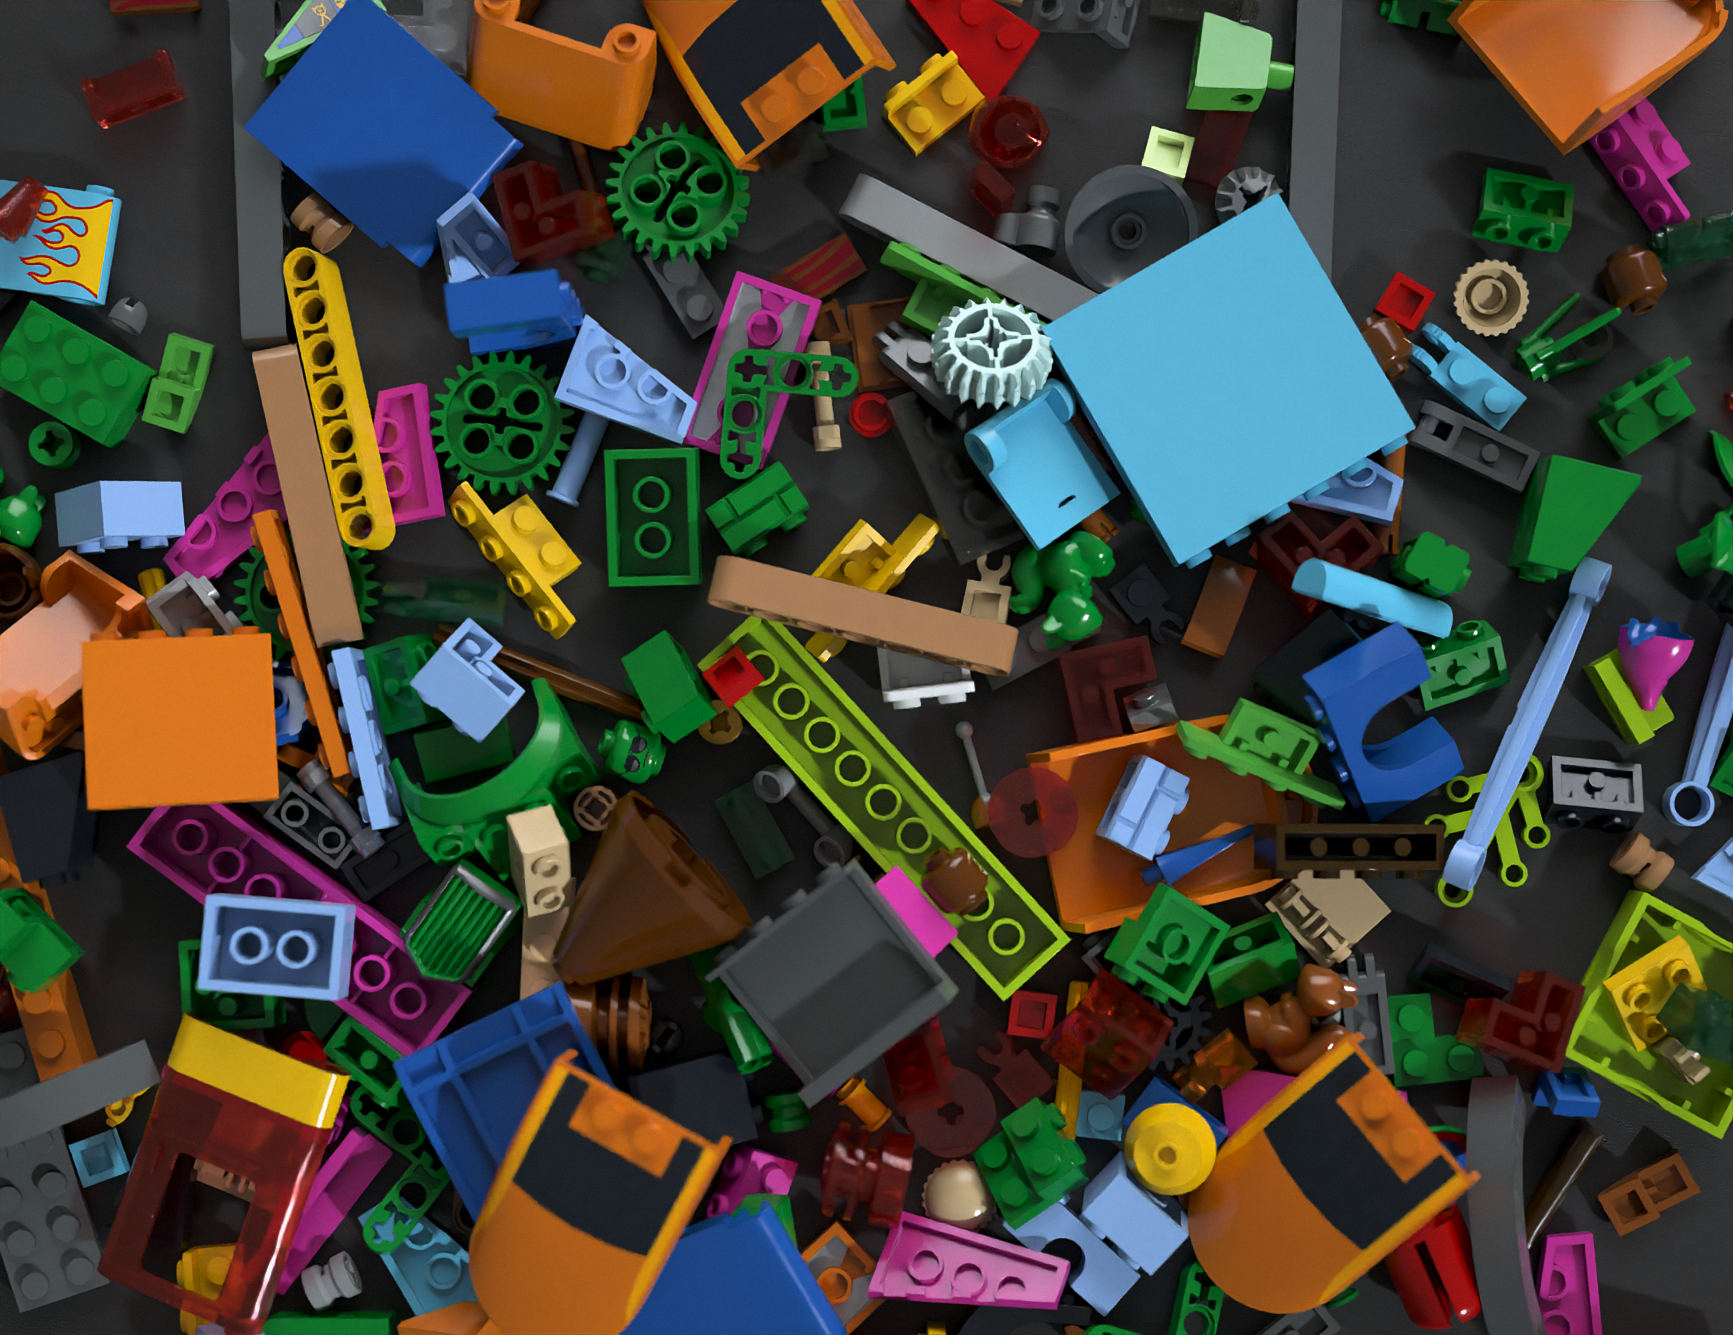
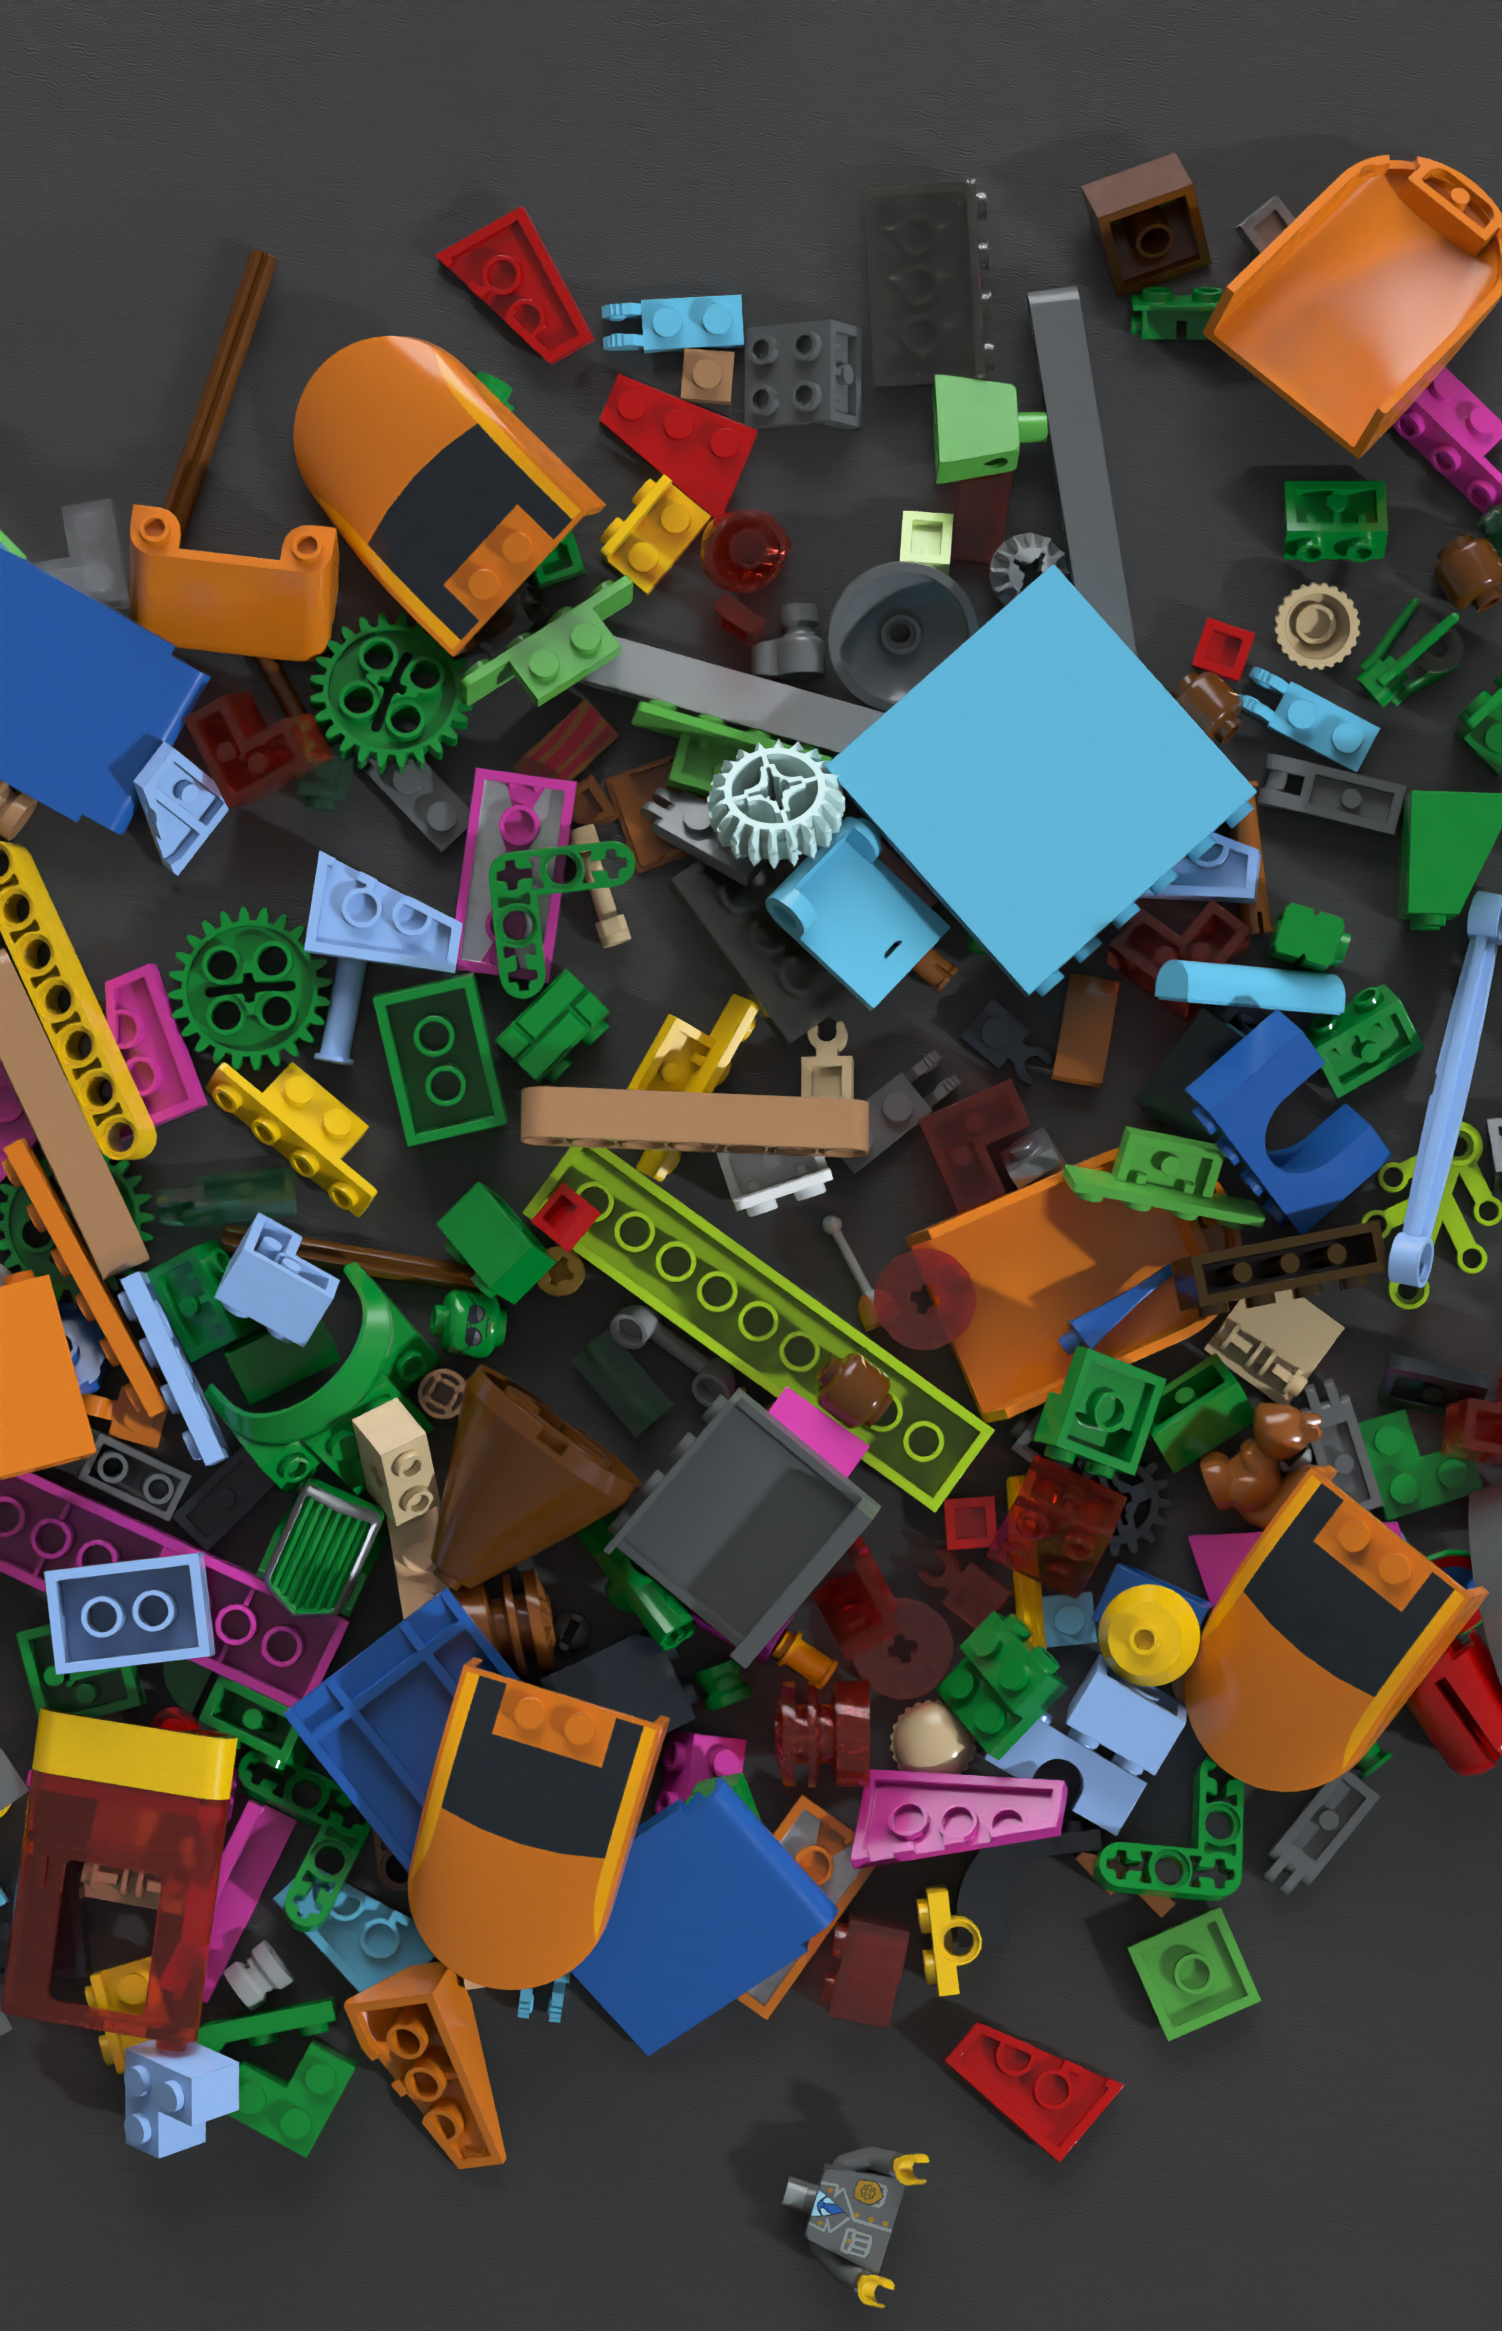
camera: 15 degrees left, 0 degrees up
(316, 778) = (128, 1424): flat silver bar -> none
(515, 313) = (246, 869): blue arch -> none
(826, 186) = (558, 654): none -> bright green bracket
(868, 416) = (653, 897): red plate -> none
(1067, 571) = (909, 1025): green animal -> none
(1143, 807) = (1046, 1269): light blue brick -> none
(1218, 1063) = (1185, 1532): clear orange plate -> none

